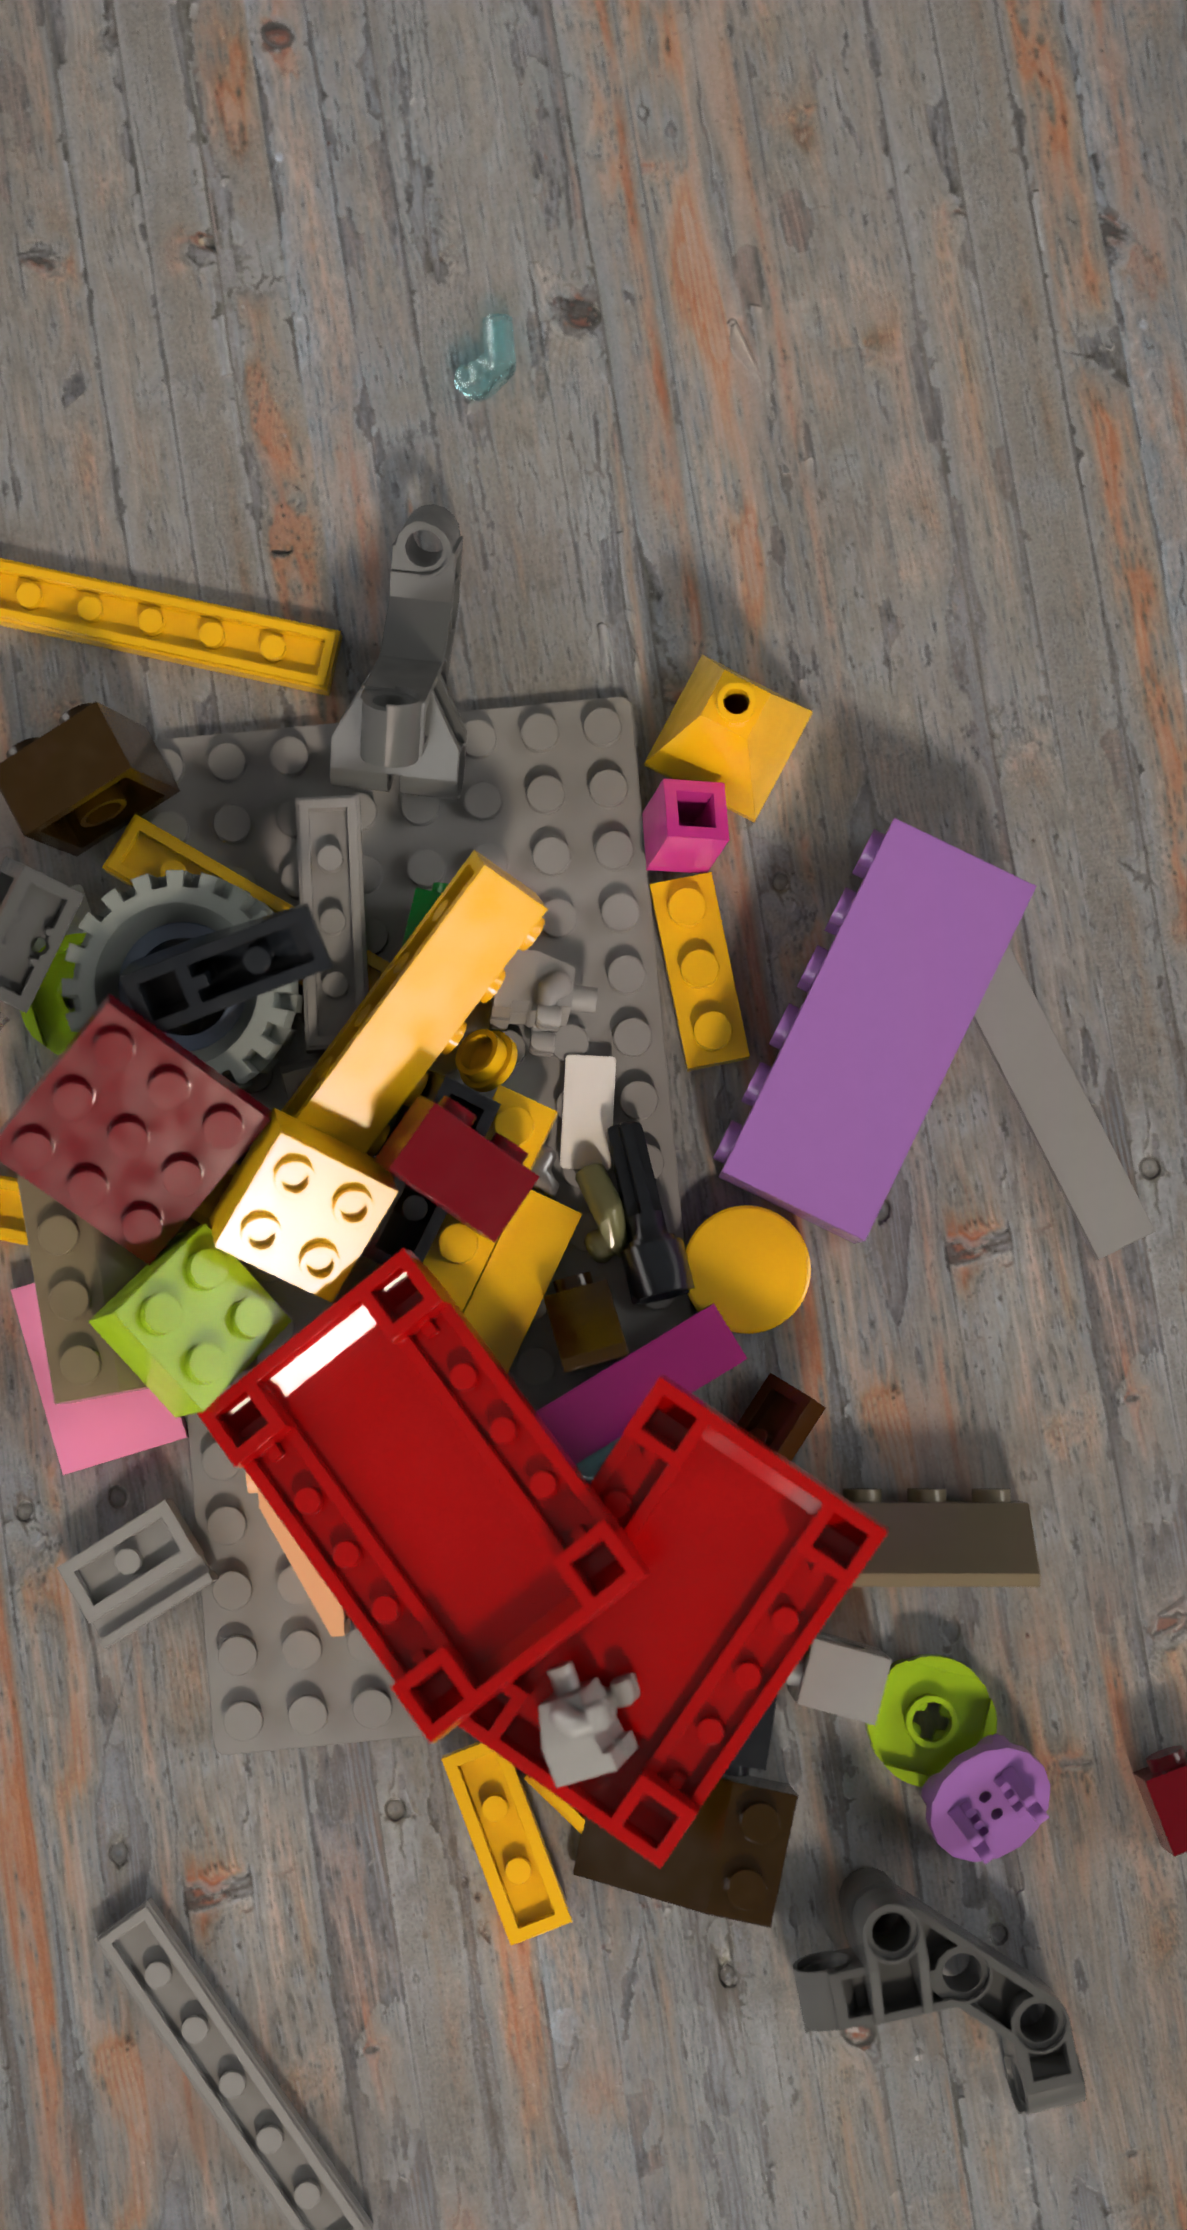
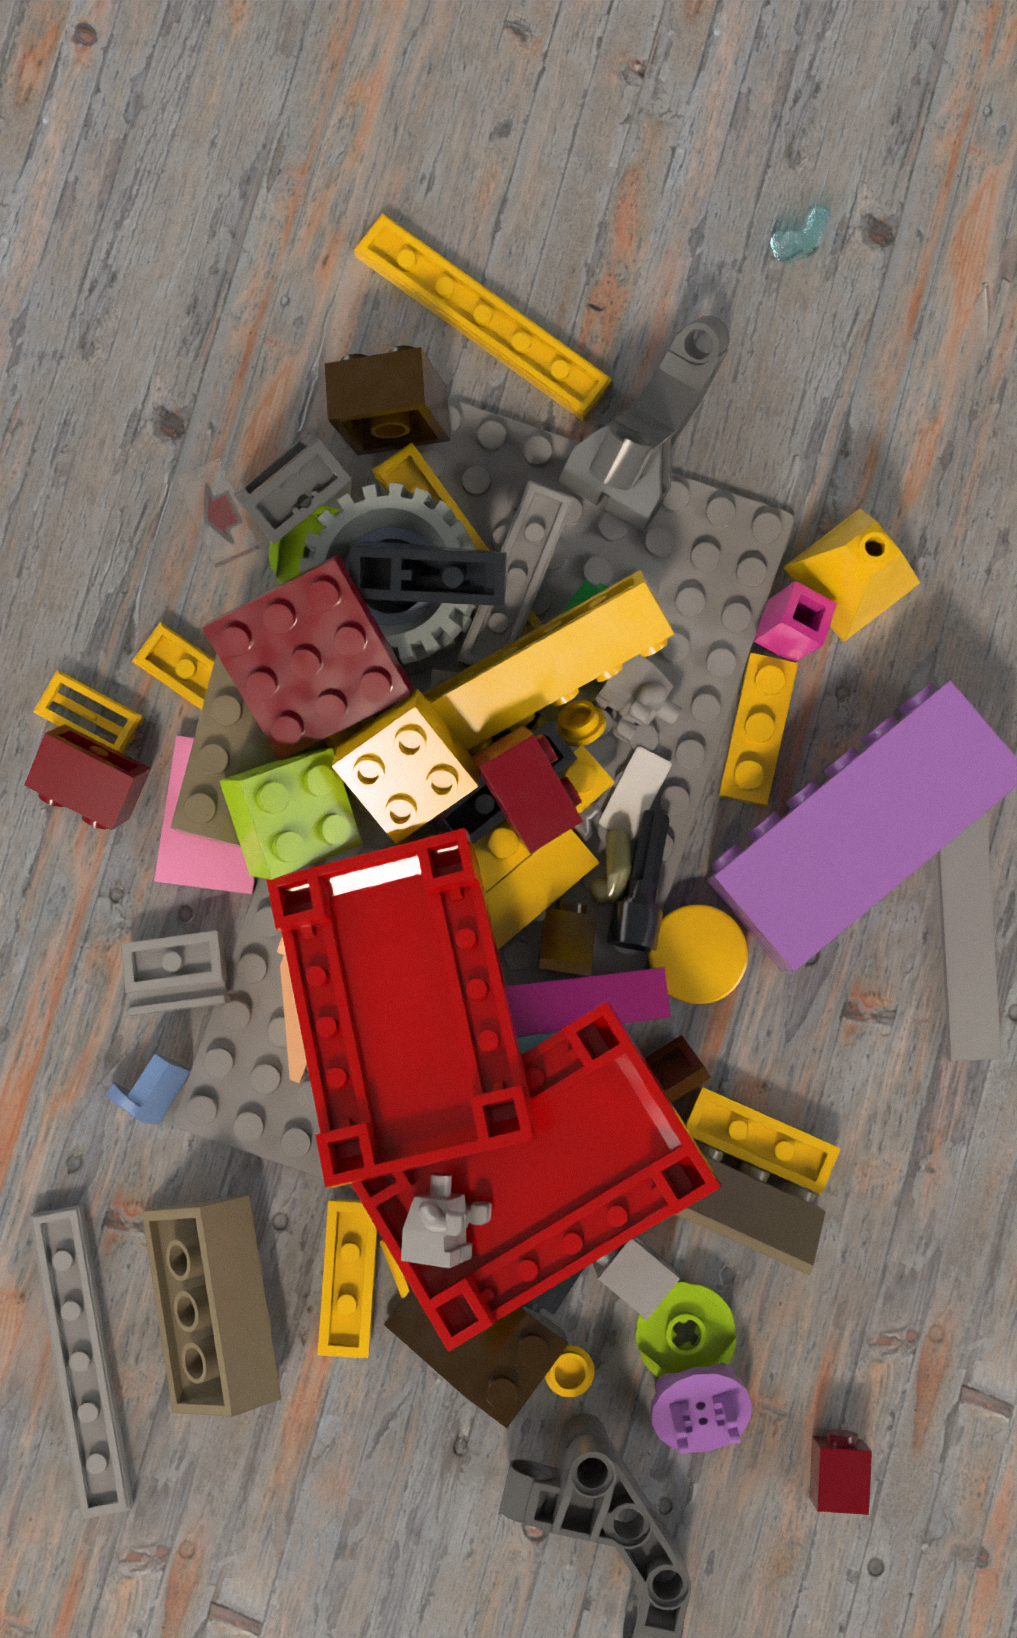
camera: 25 degrees right, 0 degrees up
(174, 1724) = (153, 1090): none -> medium blue tile
(359, 1946) = (212, 1306): none -> dark tan slope
(817, 1828) = (571, 1372): none -> yellow plate
(918, 1454) = (761, 1140): none -> yellow plate

